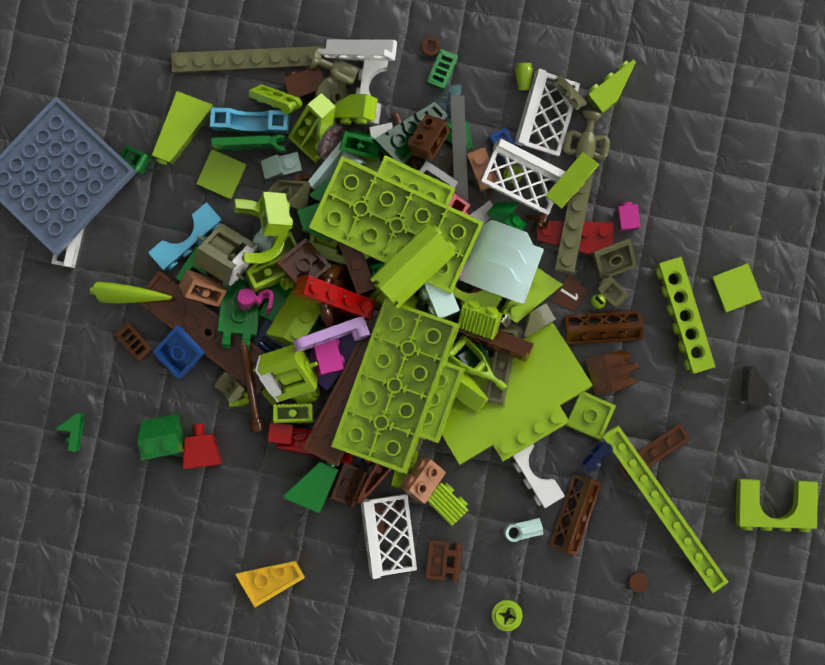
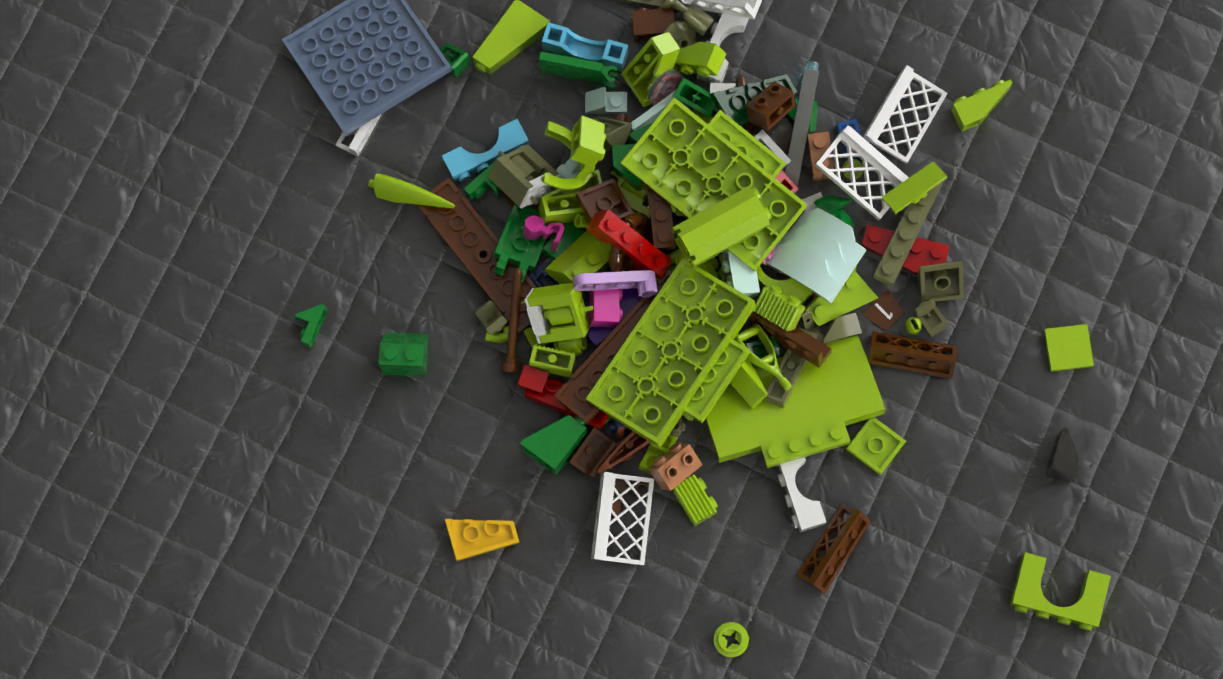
camera: 25 degrees right, 10 degrees down
(144, 353) = (408, 261): reddish brown slope -> none
(178, 352) = (446, 267): blue plate -> none
(200, 449) = (442, 376): red torso -> none
(202, 288) = (490, 206): nougat brick -> none
(221, 174) = (540, 96): lime tile -> none
(275, 98) = (618, 30): lime plate -> none
(430, 46) = (796, 18): reddish brown tile -> none
(437, 560) = (669, 560): reddish brown plate -> none
(438, 84) = (795, 58): green slope -> none
(523, 75) = (888, 70): lime cone -> none
(525, 529) = (773, 550): light aqua piece -> none
(542, 220) = (870, 223): reddish brown hand -> none
(569, 92) = (933, 97): olive slope -> none
(587, 139) = (941, 153): olive piece -> none
(592, 461) = (867, 490): clear blue plate -> none
(611, 372) = (910, 404): reddish brown plate -> none
(628, 216) = (966, 243): dark pink brick -> none
(638, 582) = (885, 640): reddish brown tile -> none
(660, 447) = (935, 501): reddish brown plate -> none
(665, 509) = (934, 565): lime plate -> none
(688, 304) = (1006, 309): lime brick -> none

